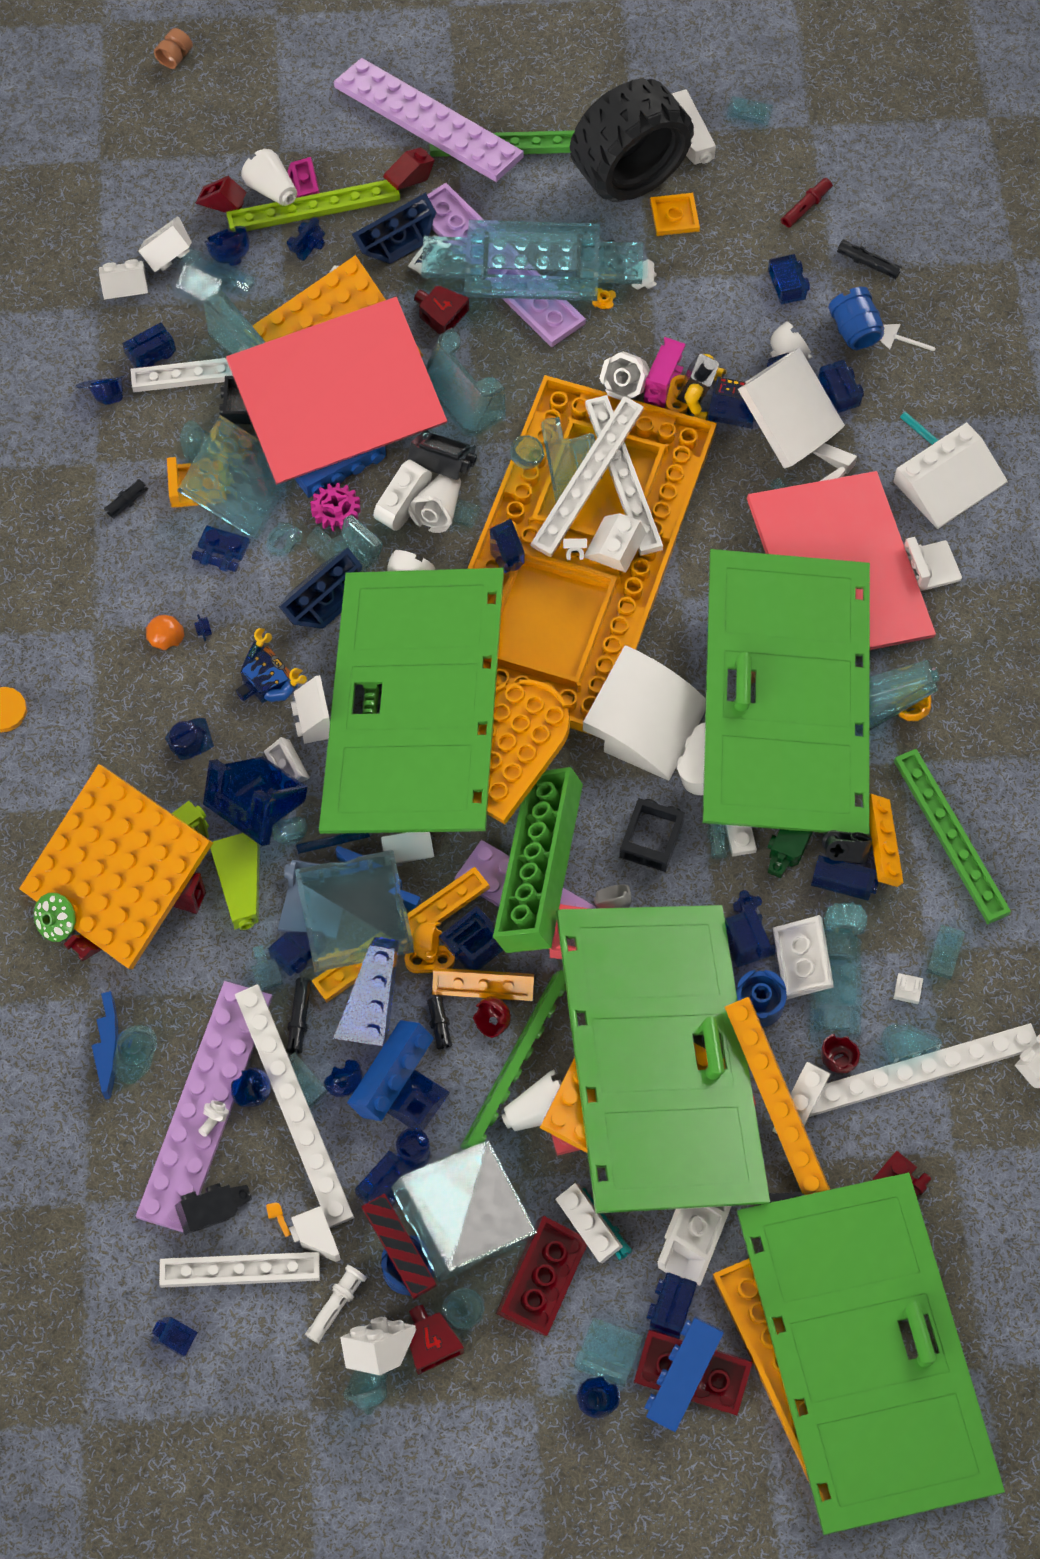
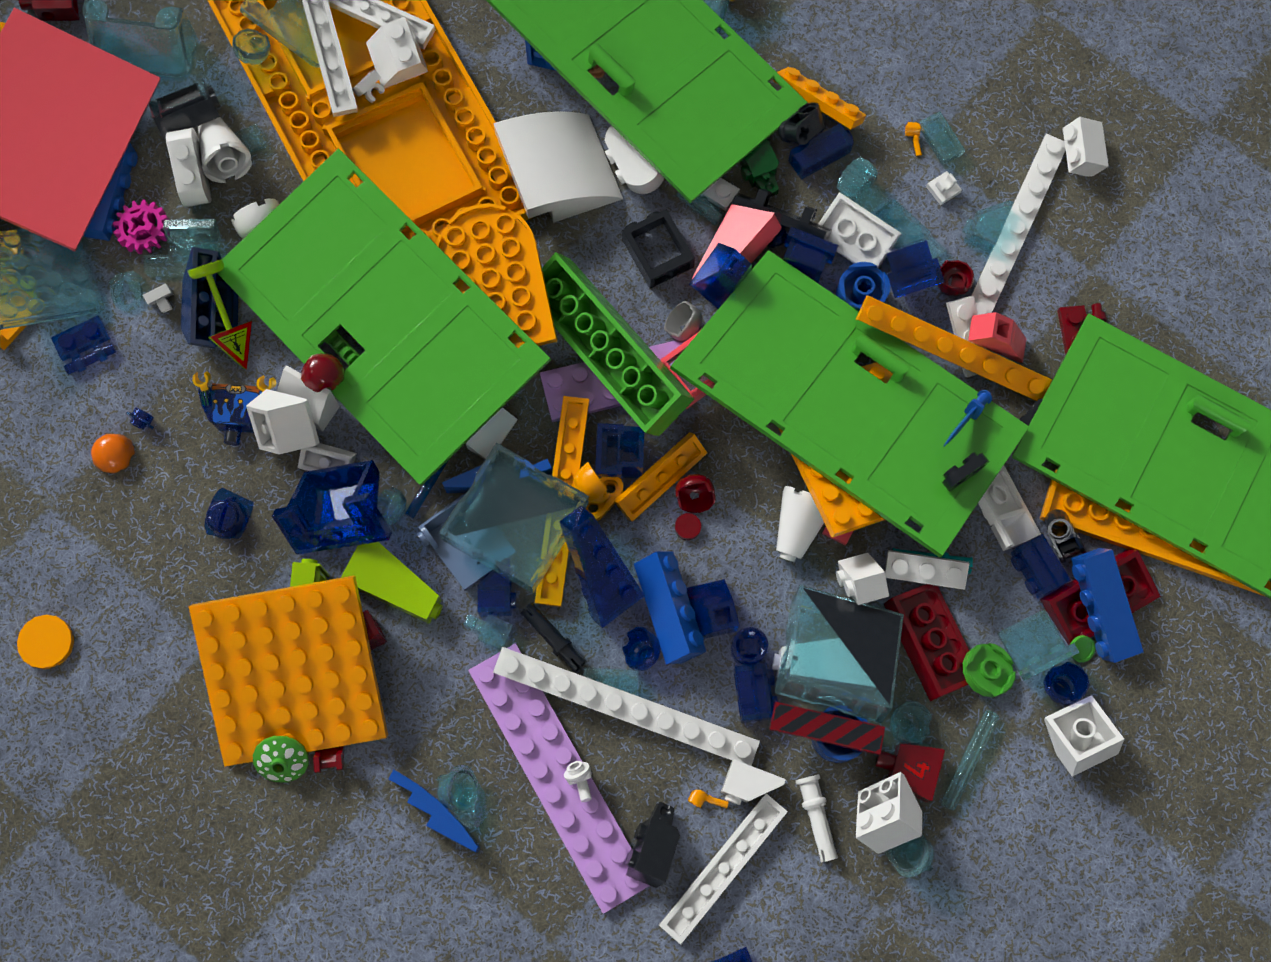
camera: 50 degrees left, 10 degrees up
(251, 1088) = (582, 728): clear blue hair -> none
(280, 710) = (282, 422): none -> white slope
(296, 562) = (160, 297): none -> white tile
(311, 632) = (234, 340): none -> lime piece
(336, 700) = (322, 372): none -> dark red hair
(439, 1023) = (660, 536): black pin -> none
(465, 1035) = (687, 526): none -> dark red tile
(477, 1378) = (969, 760): none -> clear light blue axle
(506, 546) = (319, 132): clear blue slope -> none
(511, 1070) = (748, 515): bright green plate -> none
(536, 1181) = (862, 578): none -> white brick
(557, 1334) = (988, 670): none -> bright green tile
(569, 1442) = (1083, 735): none -> white slope
(639, 1389) = (1085, 647): none -> bright green piece
(665, 887) = (720, 274): none -> clear blue slope
(686, 1177) = (972, 465): none -> black plate
(702, 883) = (746, 231): none -> slope
(711, 1305) = (1064, 539): none -> black piece
(739, 1146) = (973, 411): none -> blue sword
(769, 911) = (803, 223): none -> black hinge
(808, 1013) = (913, 268): none -> clear blue plate
(819, 1122) = (998, 335): none -> coral slope
(932, 929) = (913, 130): none -> light orange hand
(952, 836) = (856, 52): bright green plate -> none

